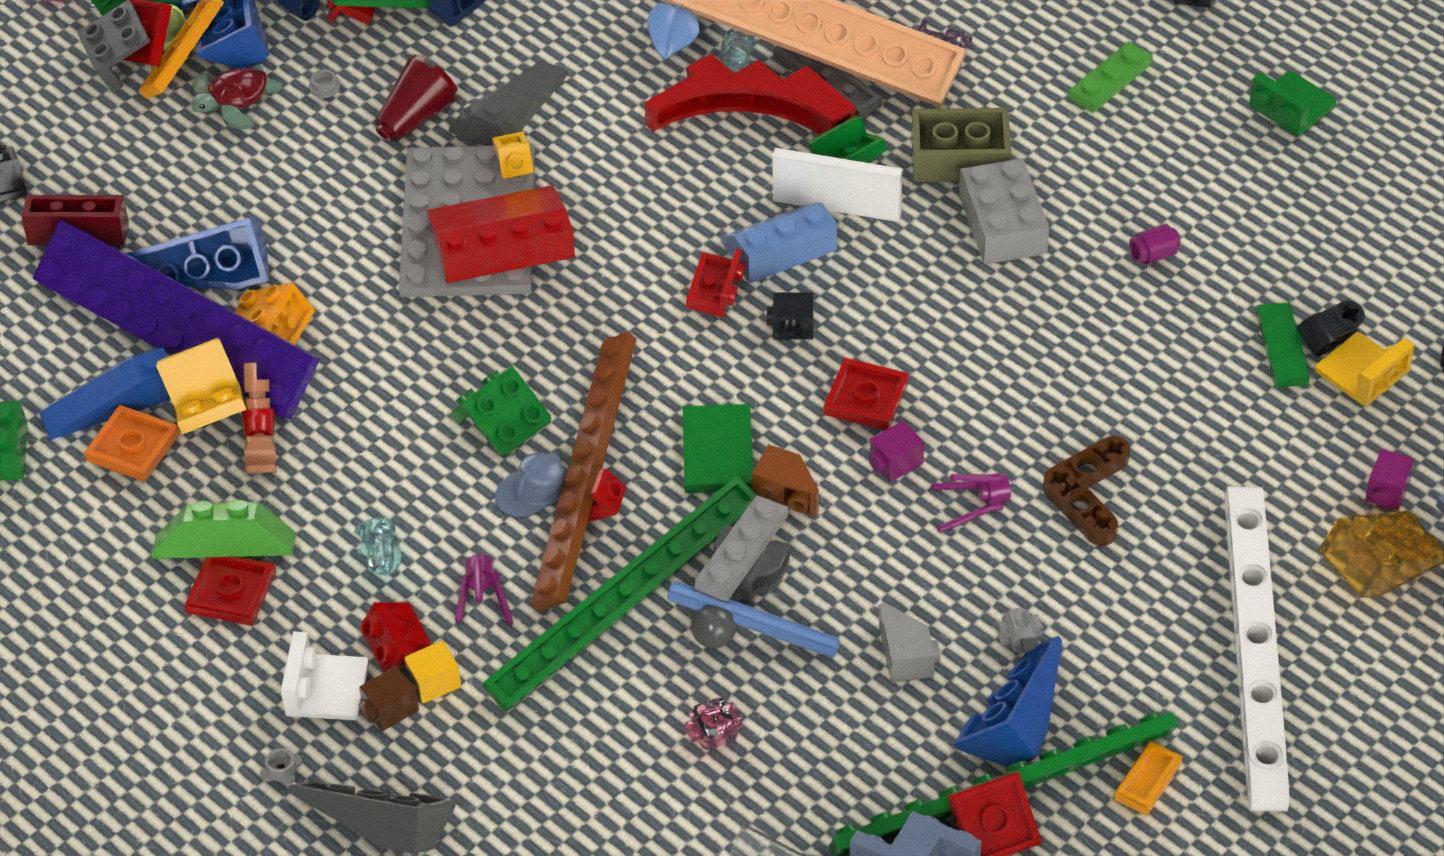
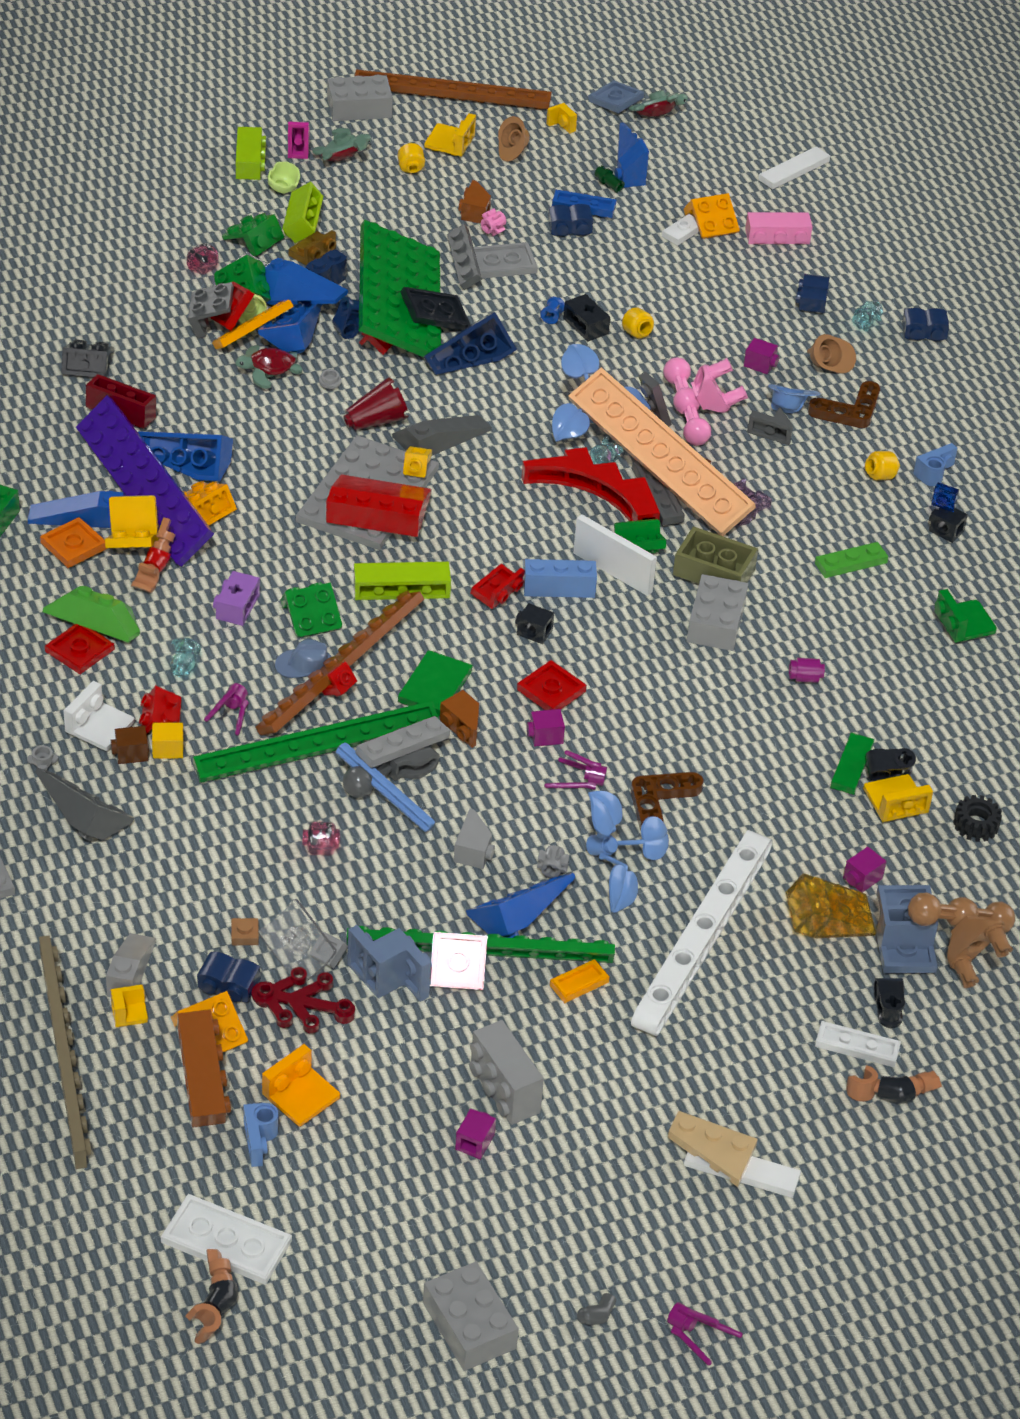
camera: 20 degrees right, 5 degrees down
(397, 434) = (237, 598): none -> medium lavender brick
(585, 325) = (389, 580): none -> lime brick
(1071, 578) = (605, 814): none -> medium blue plant

